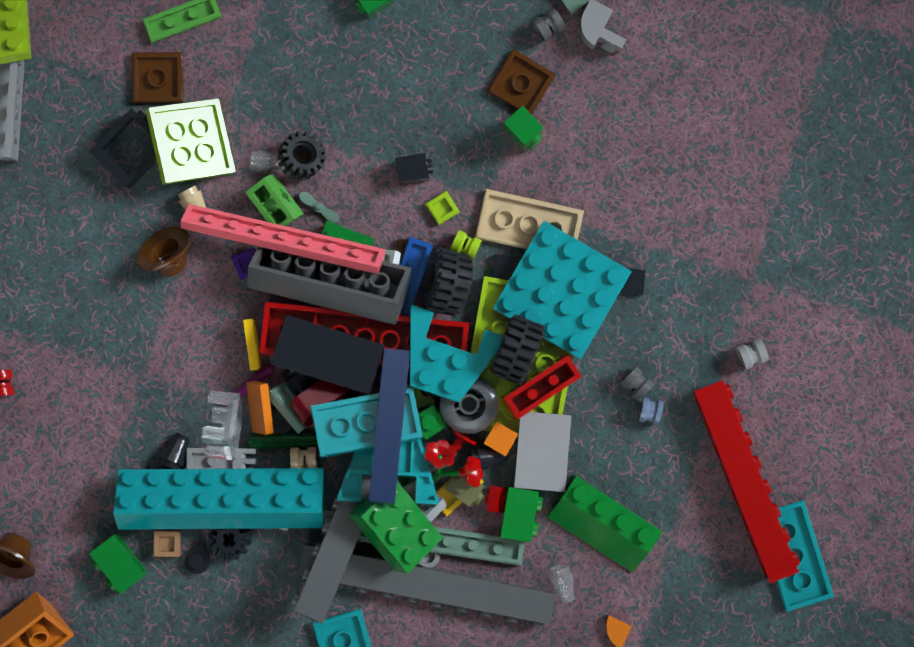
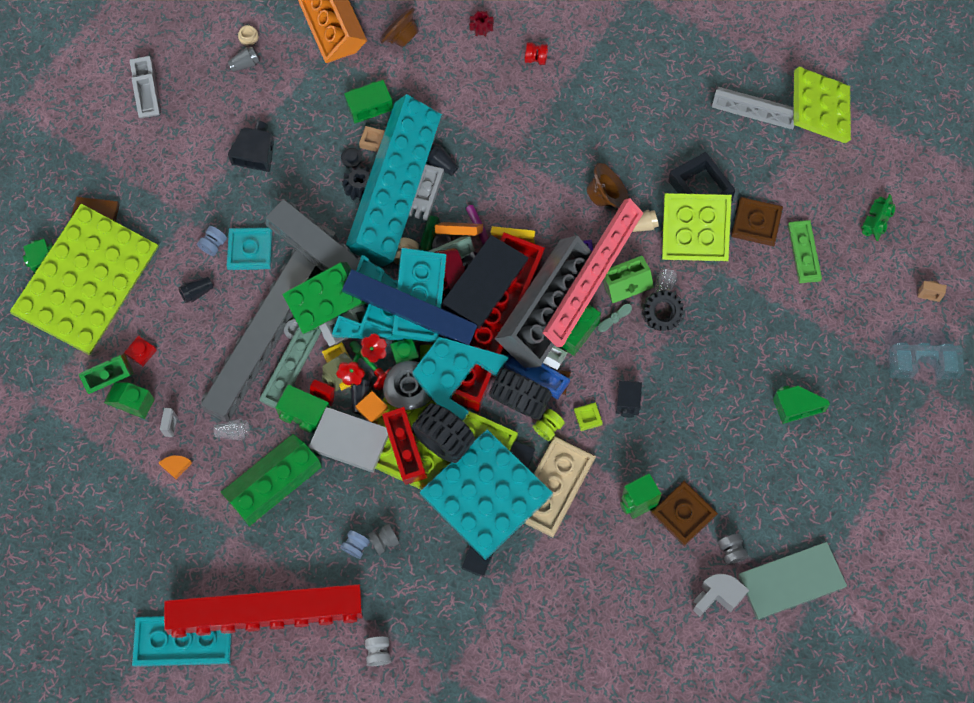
camera: 115 degrees right, 20 degrees down
(231, 422) = (448, 198): clear panel -> none

